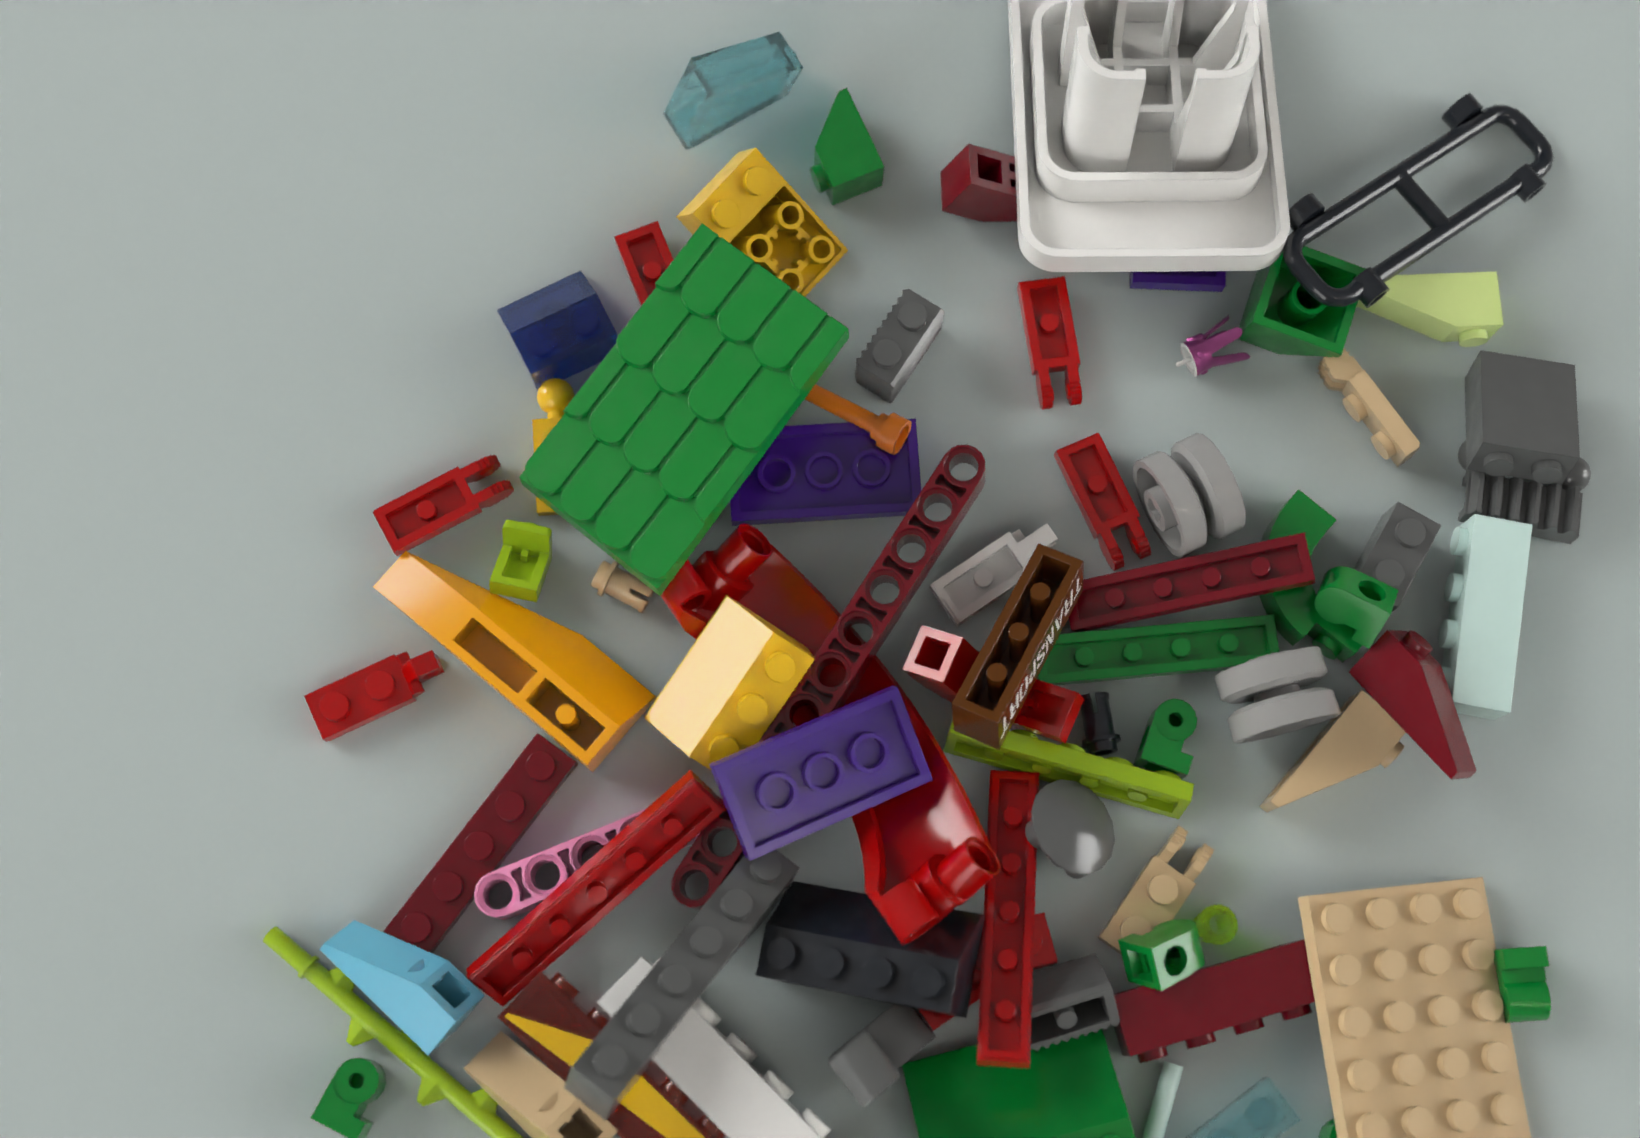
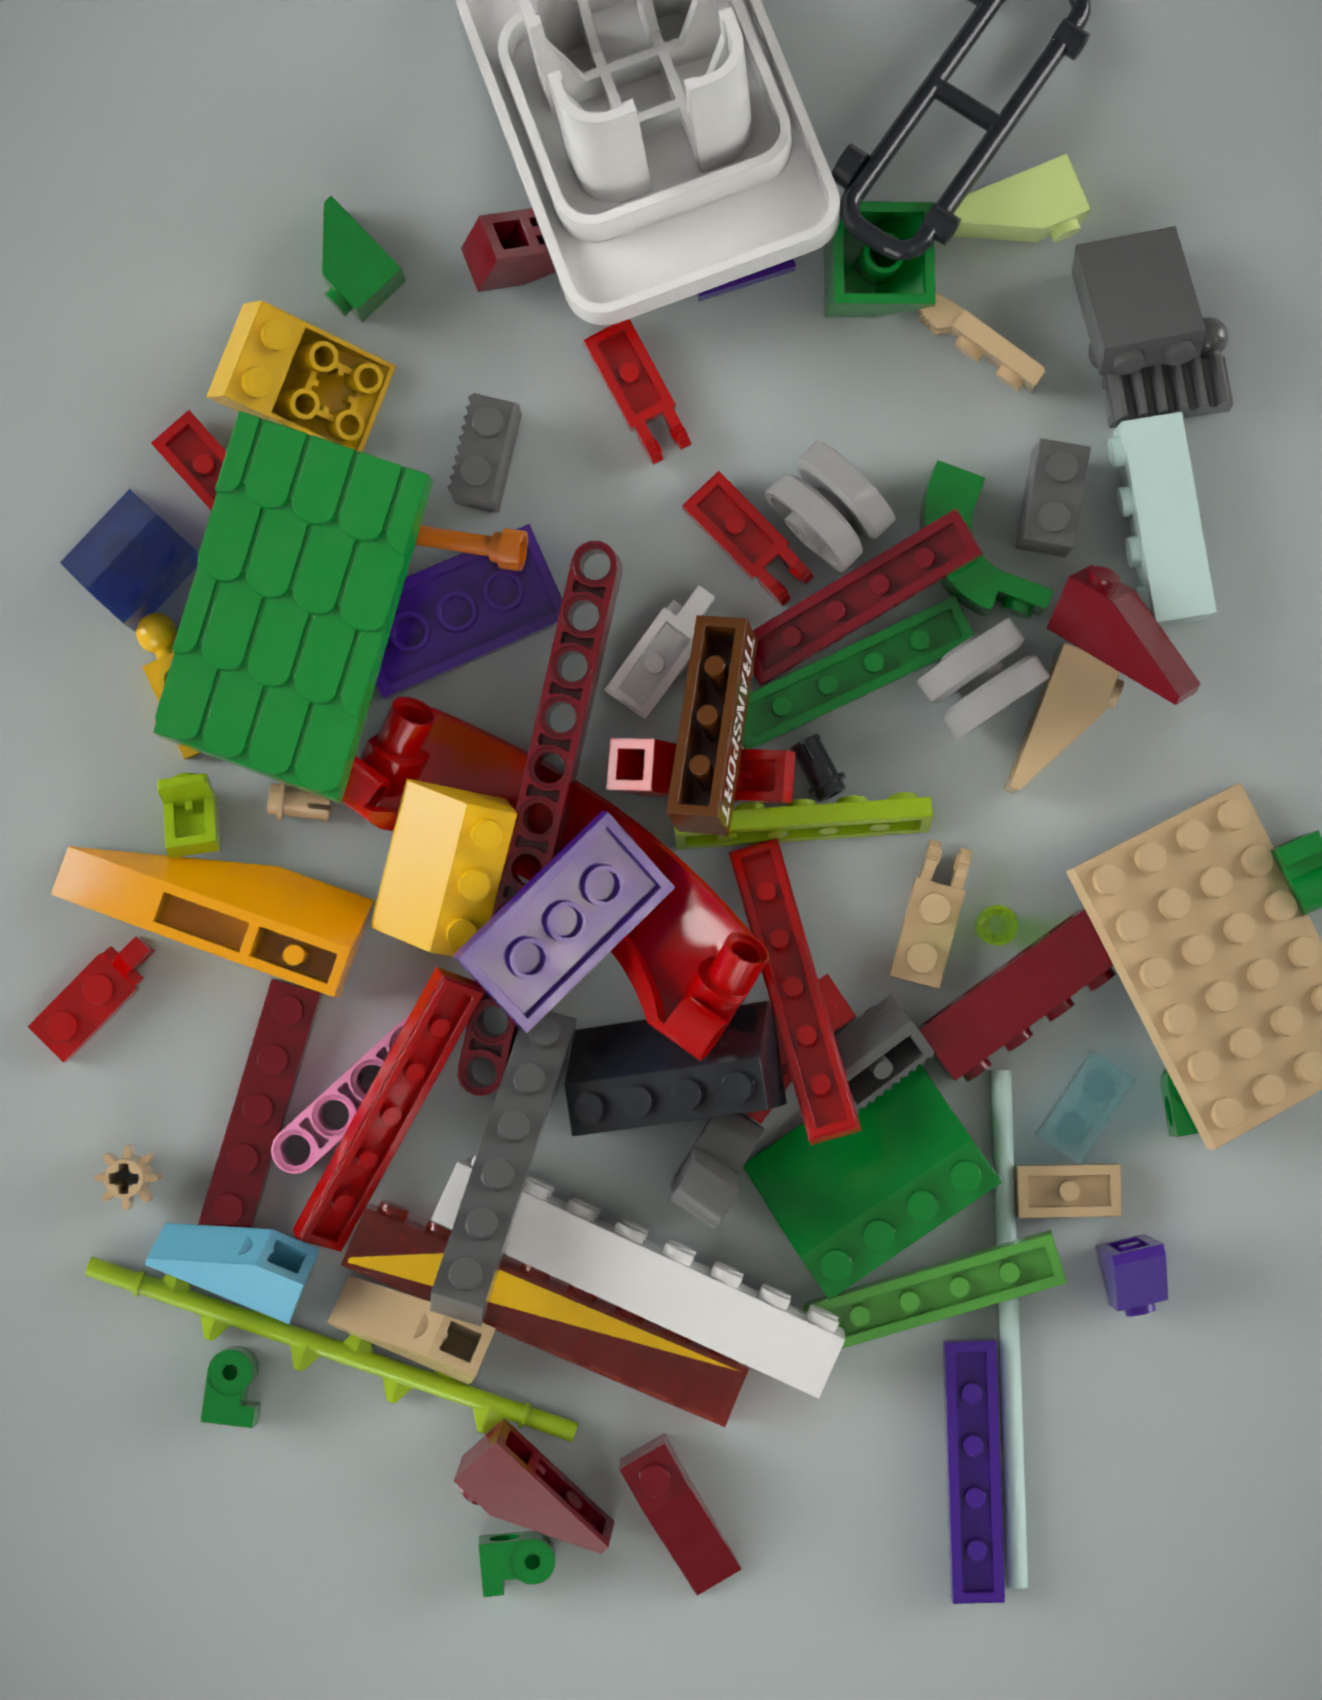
camera: 20 degrees left, 10 degrees up
(328, 874) = (119, 1188): none -> tan gear
(439, 505) = (83, 787): red hinge -> none
(730, 86) = (210, 235): clear light blue slope -> none
(1071, 828) = (826, 881): dark grey dish -> none
(1163, 955) = (955, 972): green leg -> none
(1164, 737) = (887, 758): green leg -> none
(1198, 349) = (793, 341): flat silver piece -> none
(1356, 601) = (1029, 558): green leg -> none

